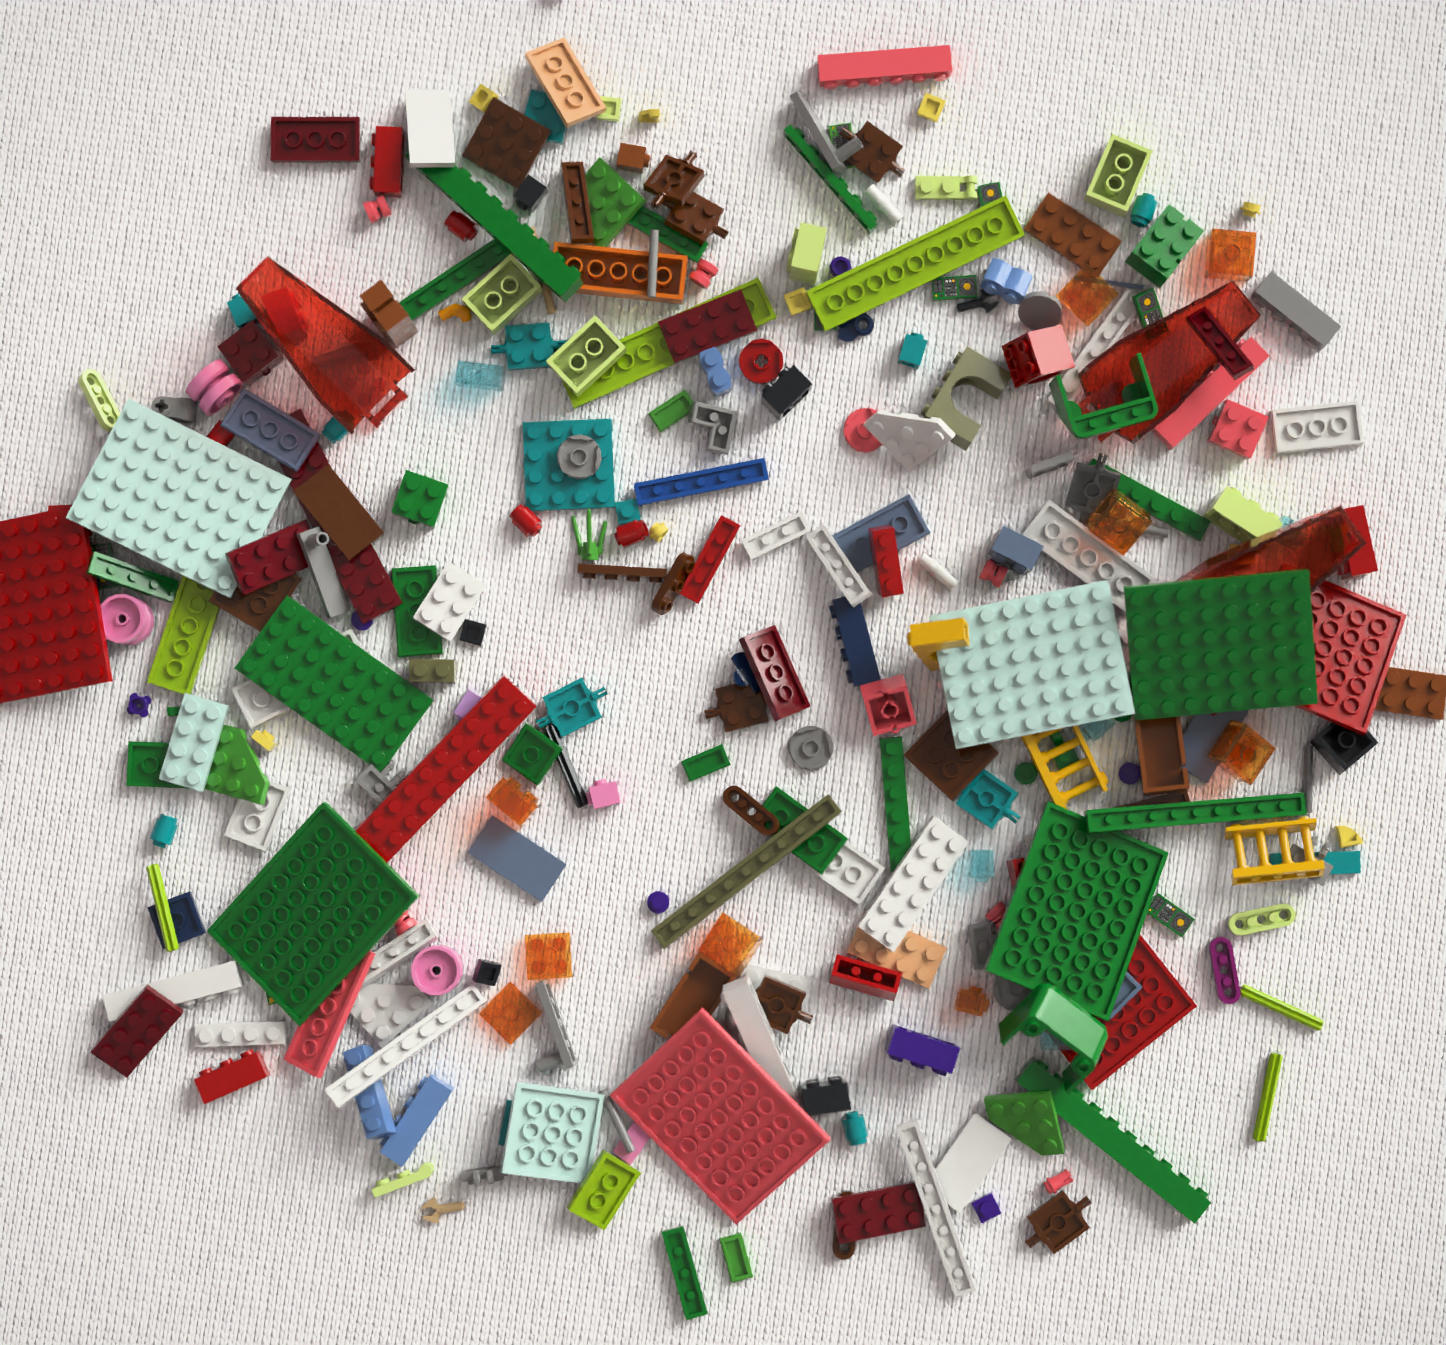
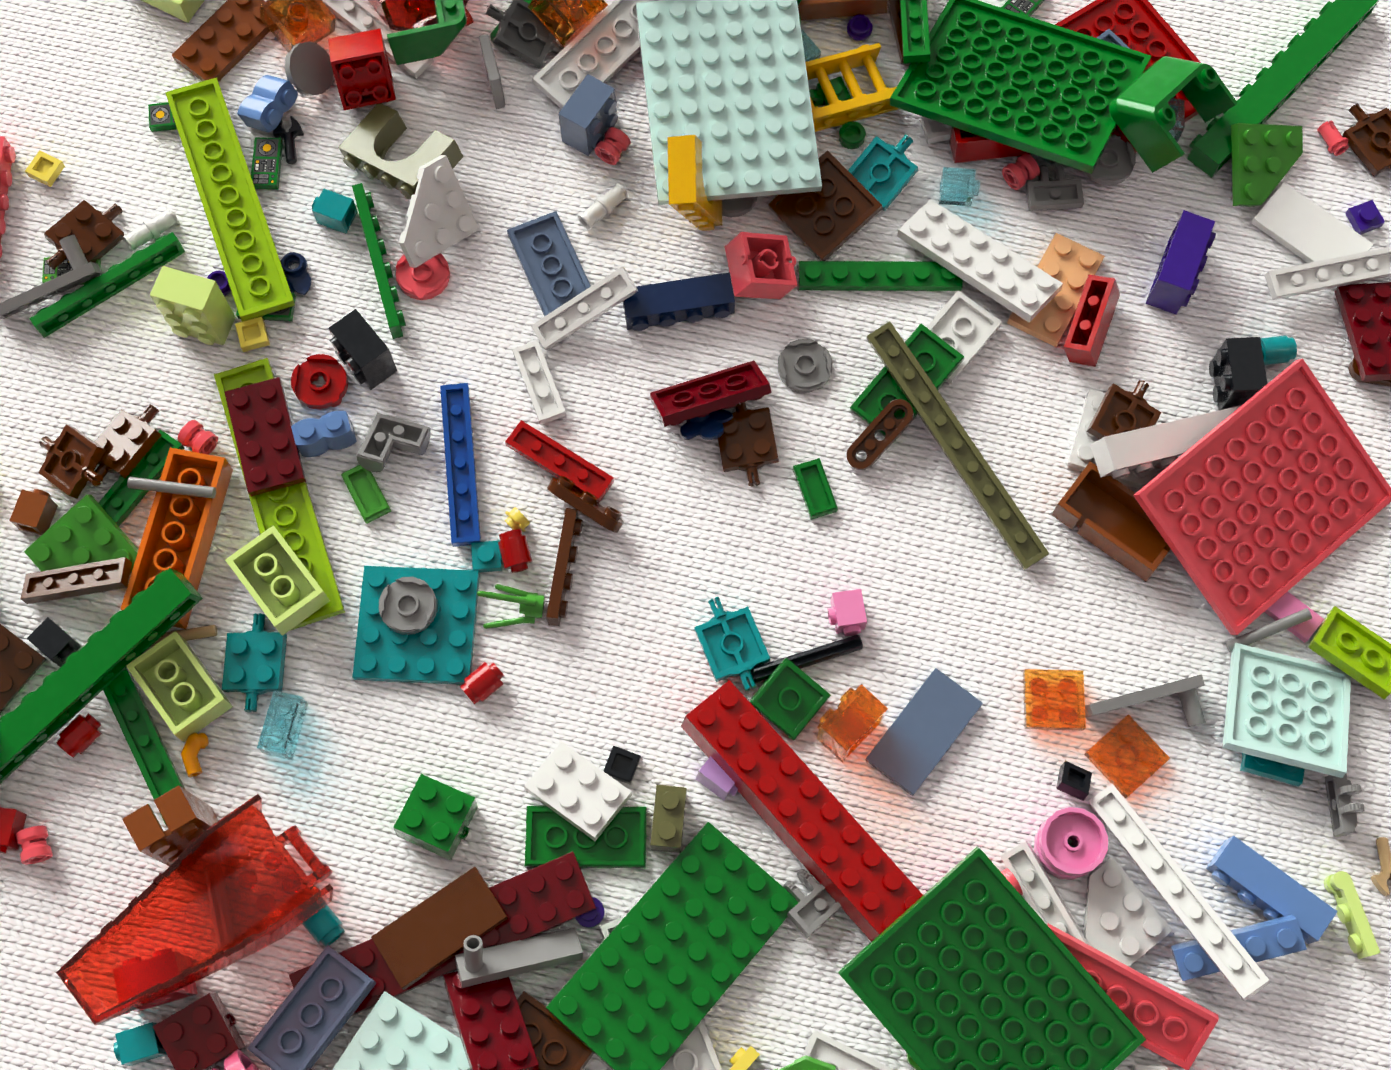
camera: 85 degrees left, 15 degrees down
(658, 902) = (988, 558): dark purple plate -> none
(731, 944) = (1046, 470): clear orange brick -> none
(880, 390) = (382, 270): none -> green plate
(885, 561) = (583, 254): red brick -> none
(945, 187) = (144, 163): yellowish green plate -> none
(971, 1001) = (1120, 210): clear orange brick -> none

